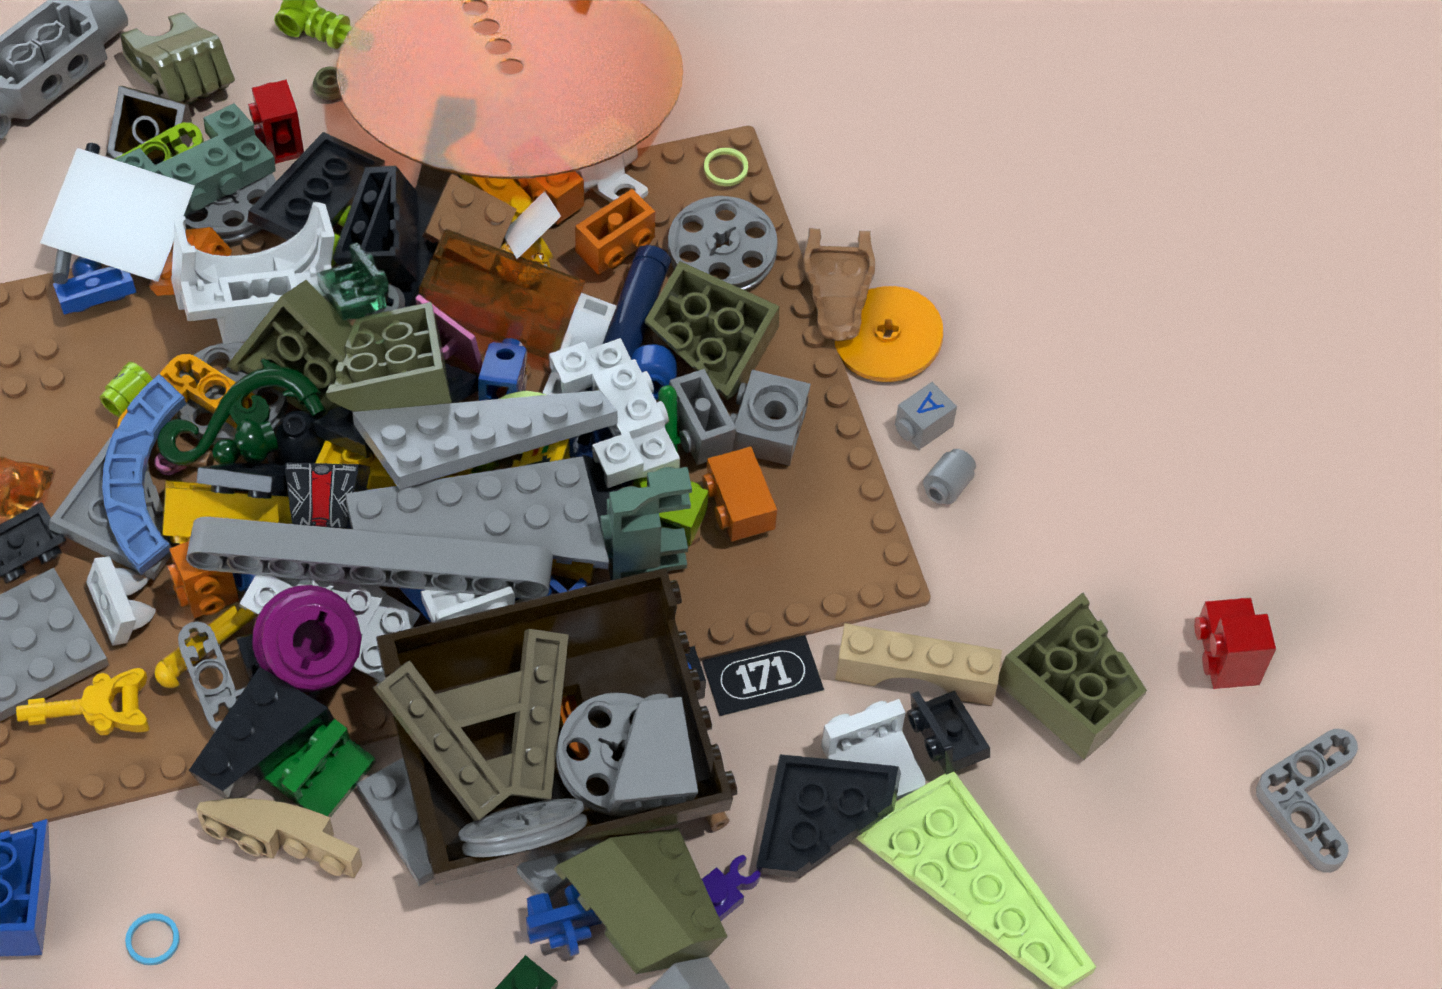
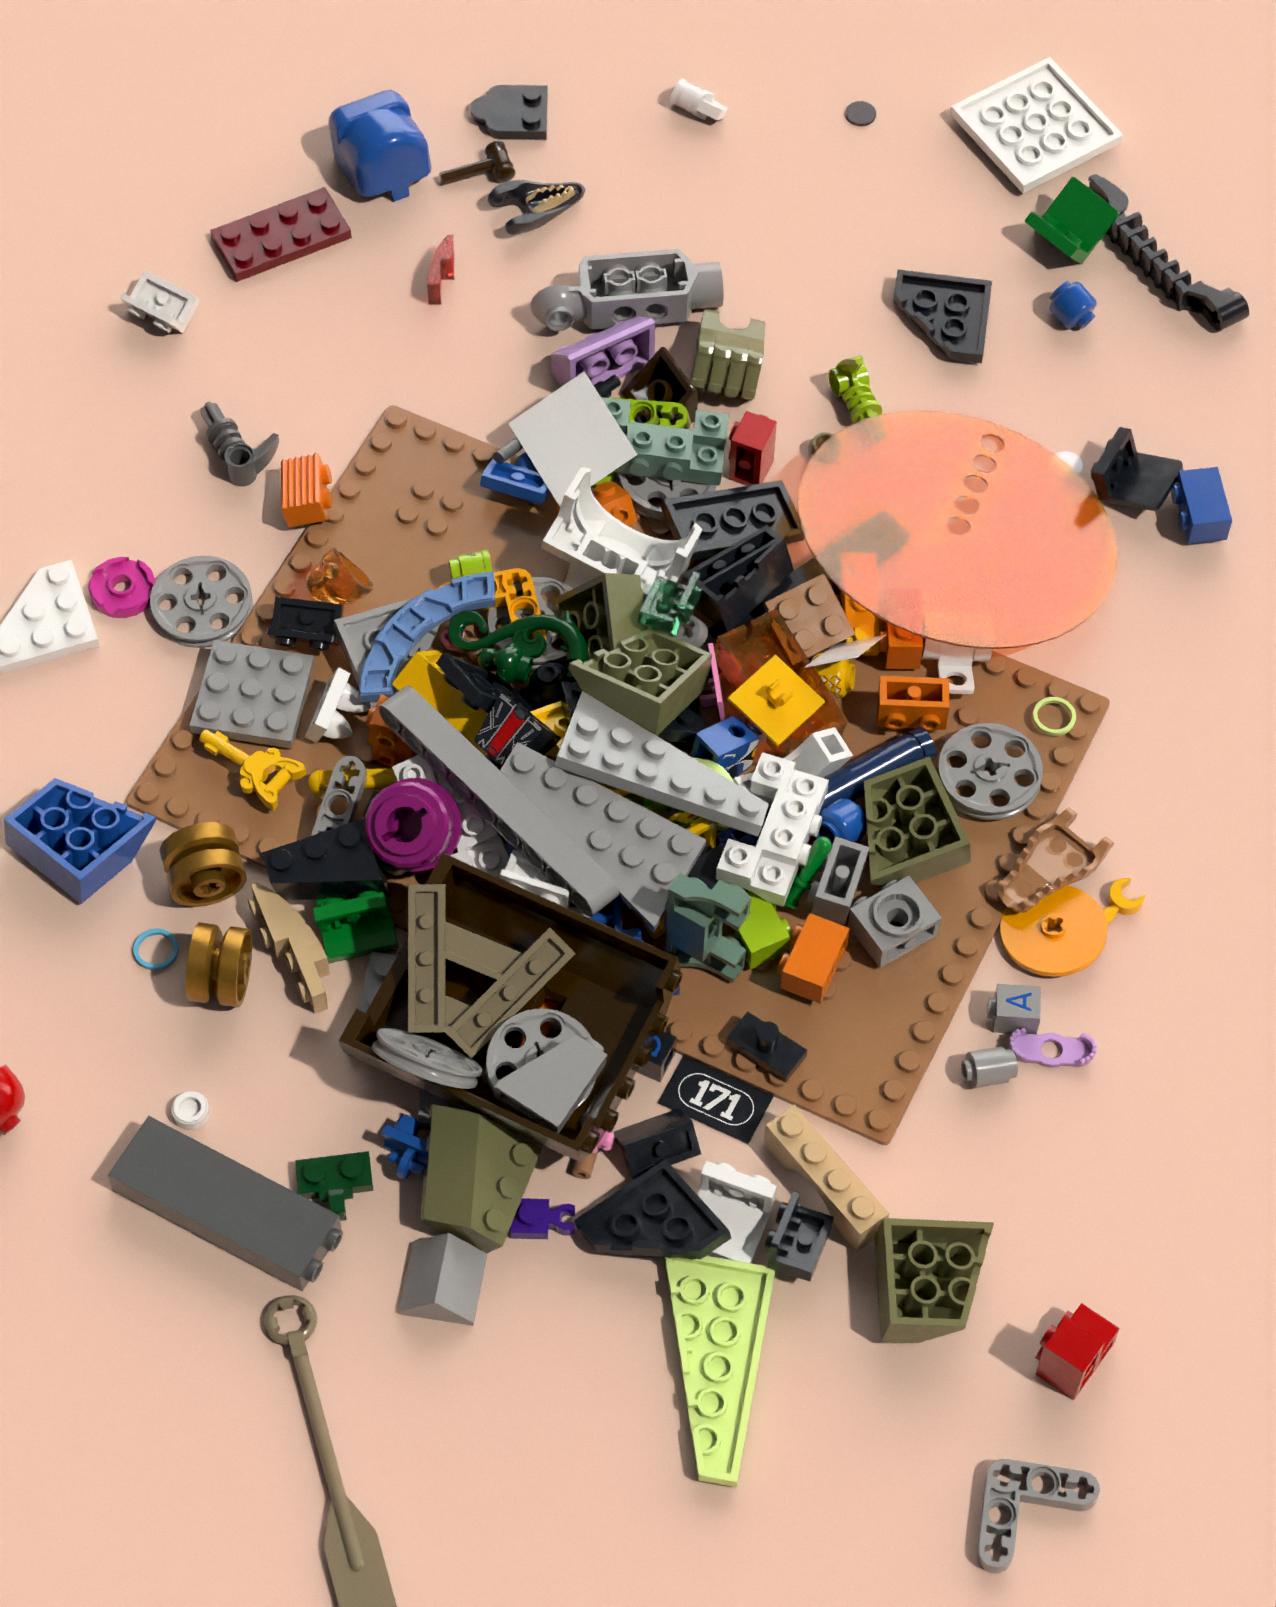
camera: 45 degrees right, 0 degrees up
(69, 123) = (610, 352): none -> lavender slope
(134, 826) = (203, 864): none -> pearl gold wheel
(244, 898) = (218, 964): none -> pearl gold wheel
(515, 304) = (776, 700): none -> yellow piece
(756, 743) = (656, 1139): none -> black panel
(768, 596) = (766, 1046): none -> black tile
(913, 277) = (1121, 904): none -> yellow piece
(995, 415) = (1075, 1051): none -> lavender piece

